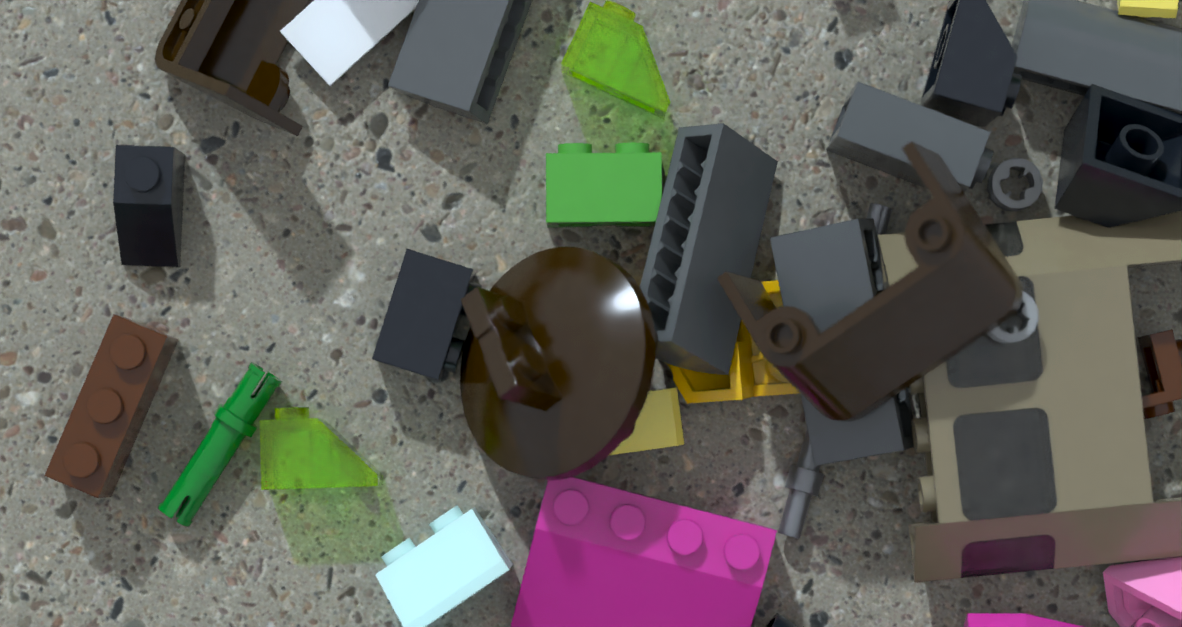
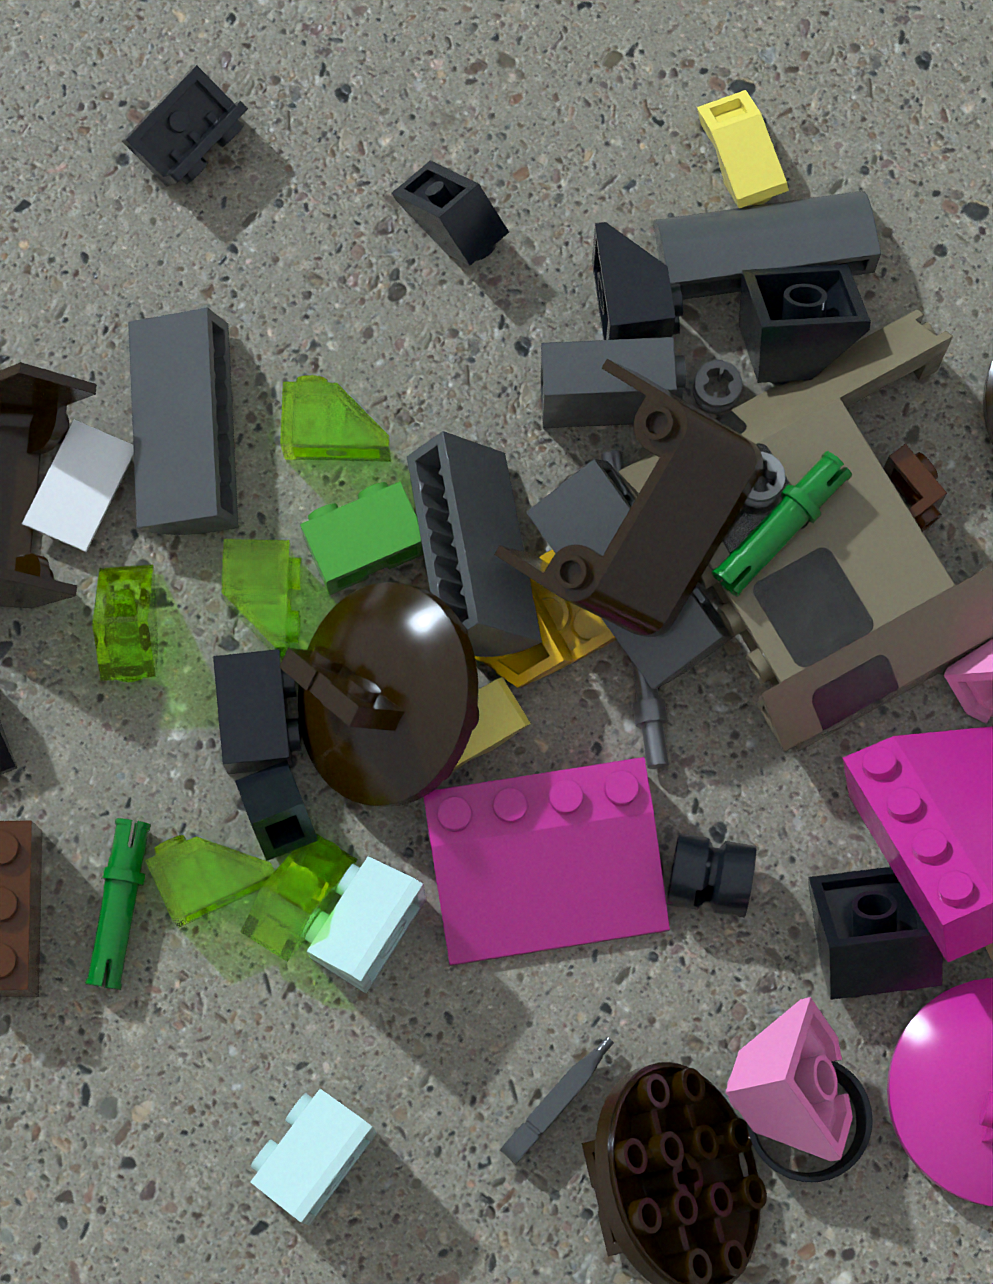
camera: 25 degrees left, 10 degrees down
(339, 173) = (126, 623): none -> clear neon green slope
(392, 512) = (296, 896): none -> clear neon green slope
(404, 423) = (276, 810): none -> black brick
(481, 195) = (259, 588): none -> clear neon green slope
(999, 376) = (798, 506): none -> green pin

